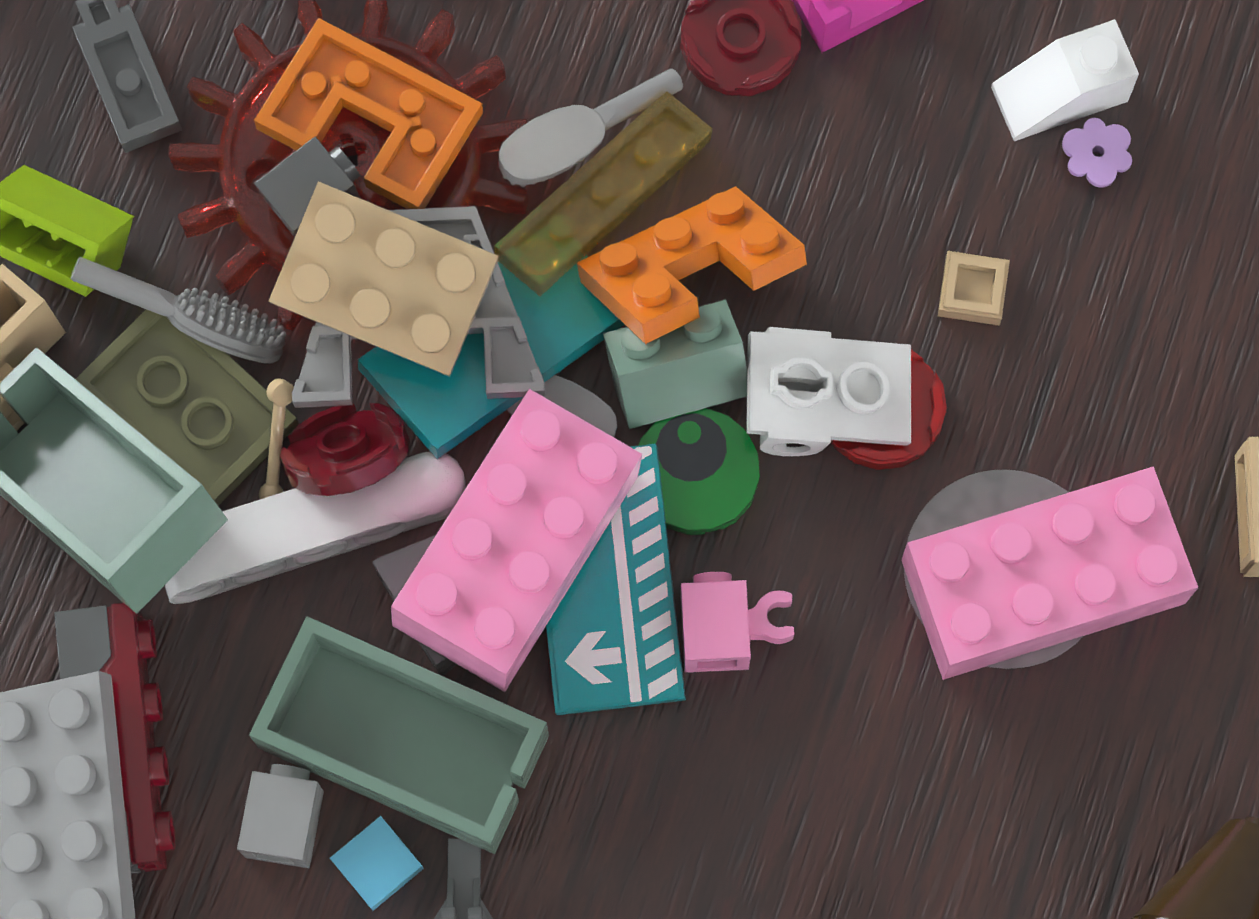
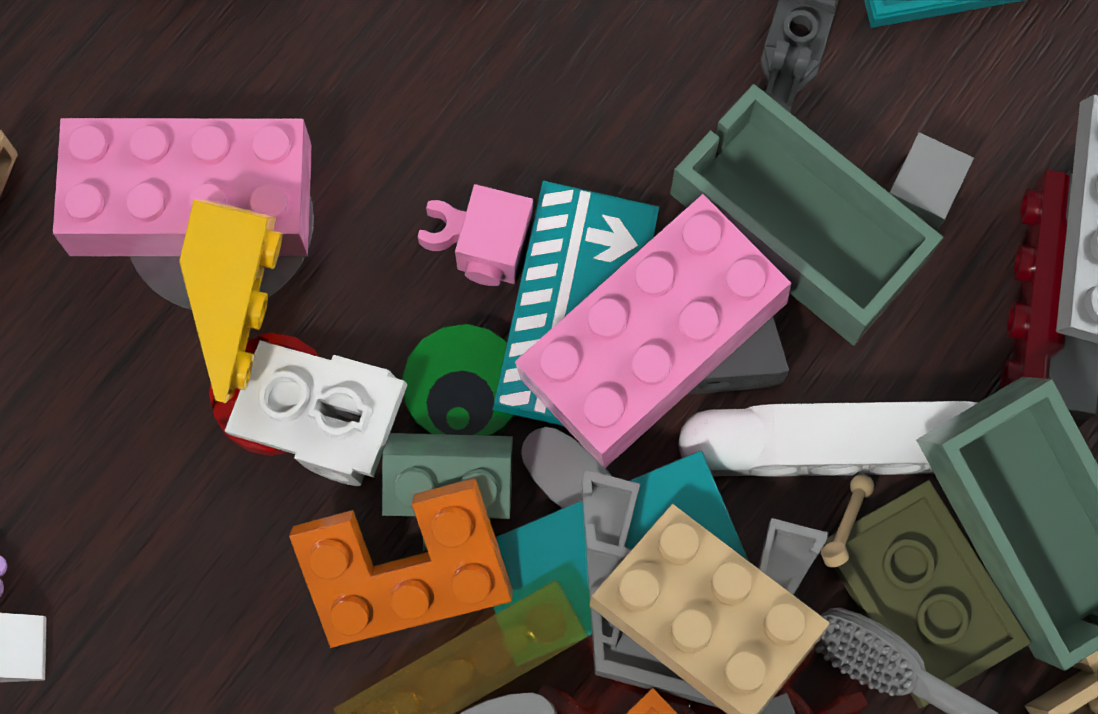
camera: 165 degrees left, 0 degrees up
(345, 449) = (785, 479): dark red tile -> none
(376, 863) = (852, 130): medium azure tile -> none
(964, 461) = (223, 275): none -> yellow slope
(973, 288) = (144, 479): tan tile -> none

